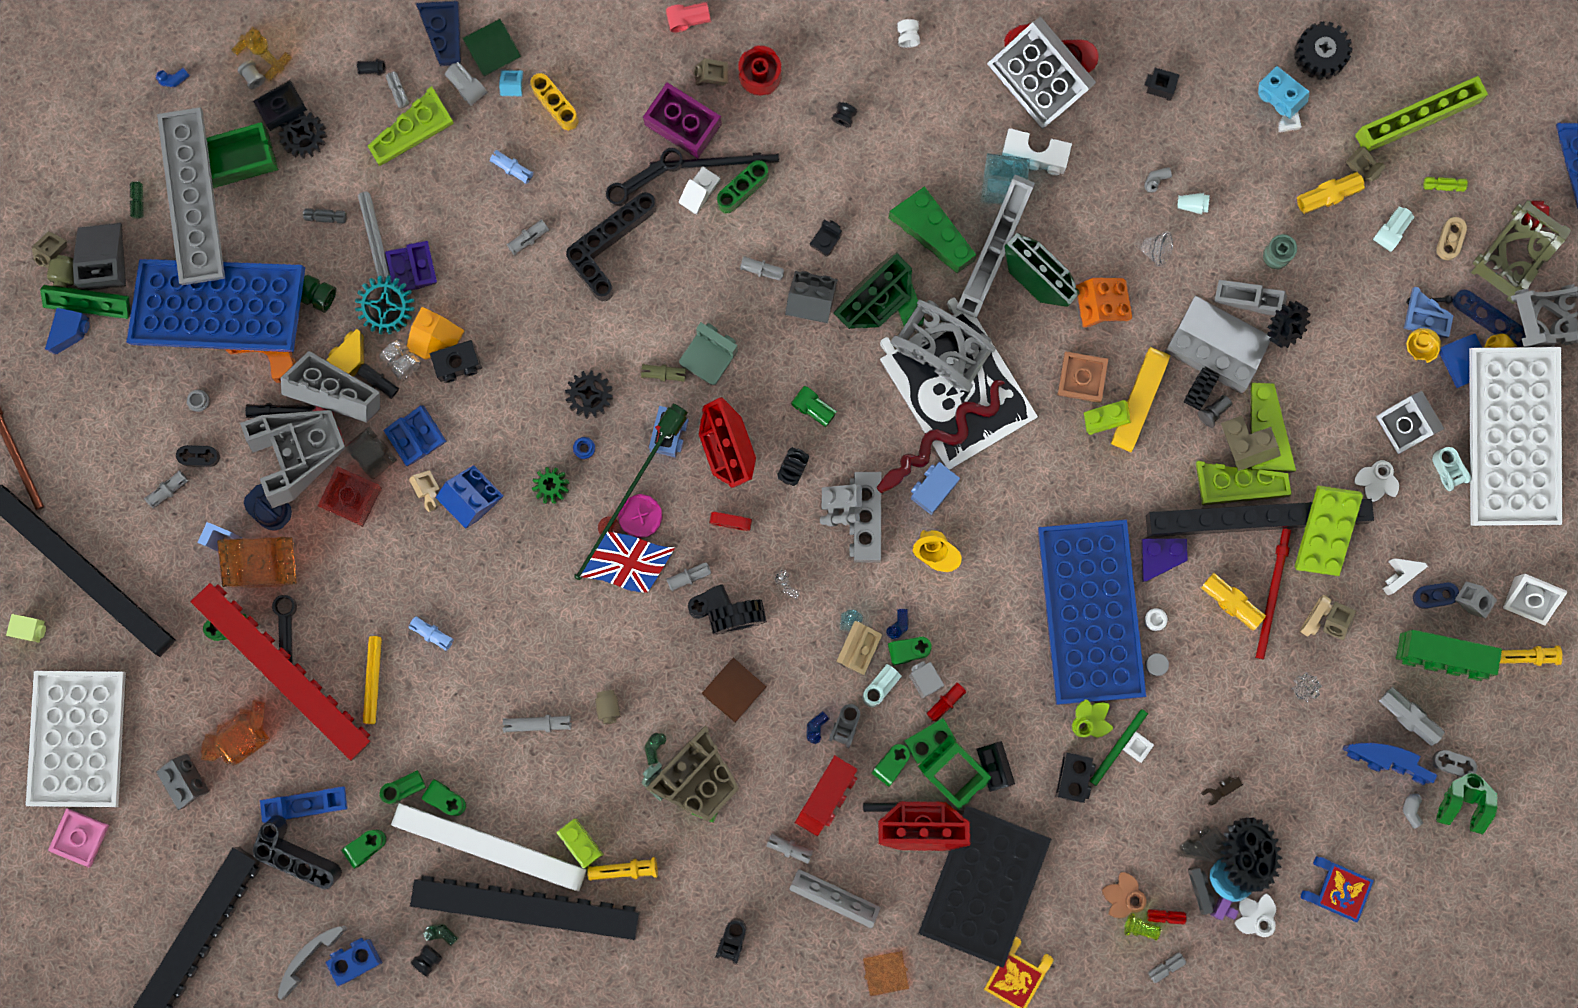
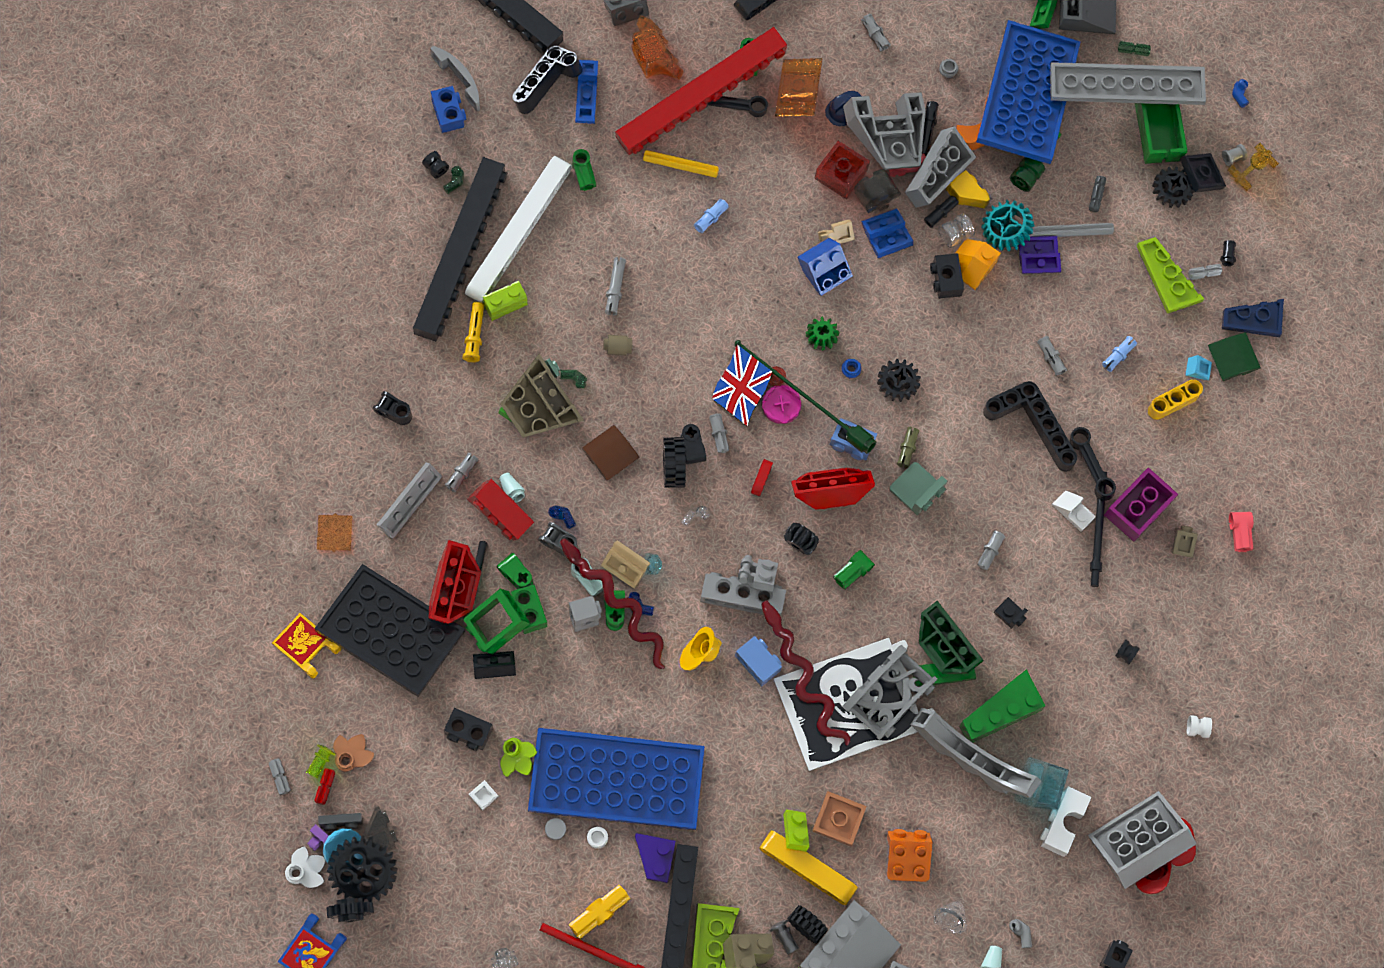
camera: 90 degrees right, 10 degrees down
(197, 451) = (903, 61): black beam -> none
(212, 534) = (829, 60): light blue panel -> none
(361, 849) = (540, 133): green piece -> none
(441, 797) = (569, 200): green piece -> none
(469, 88) = (1198, 330): light grey piece -> none
(746, 177) = (1070, 537): green beam -> none
(749, 66) = (1190, 584): red brick -> none
(798, 788) = (512, 487): none -> light aqua cone
(811, 296) = (957, 587): dark grey slope -> none
(868, 701) = (574, 556): none -> dark red animal
(946, 702) = (561, 632): red axle -> none
(1040, 271) = (948, 798): dark green wedge -> none
(1118, 747) = (487, 777): green bar -> none
(1226, 787) = (429, 866): dark brown plate -> none
(1295, 857) = (350, 910): none -> black gear

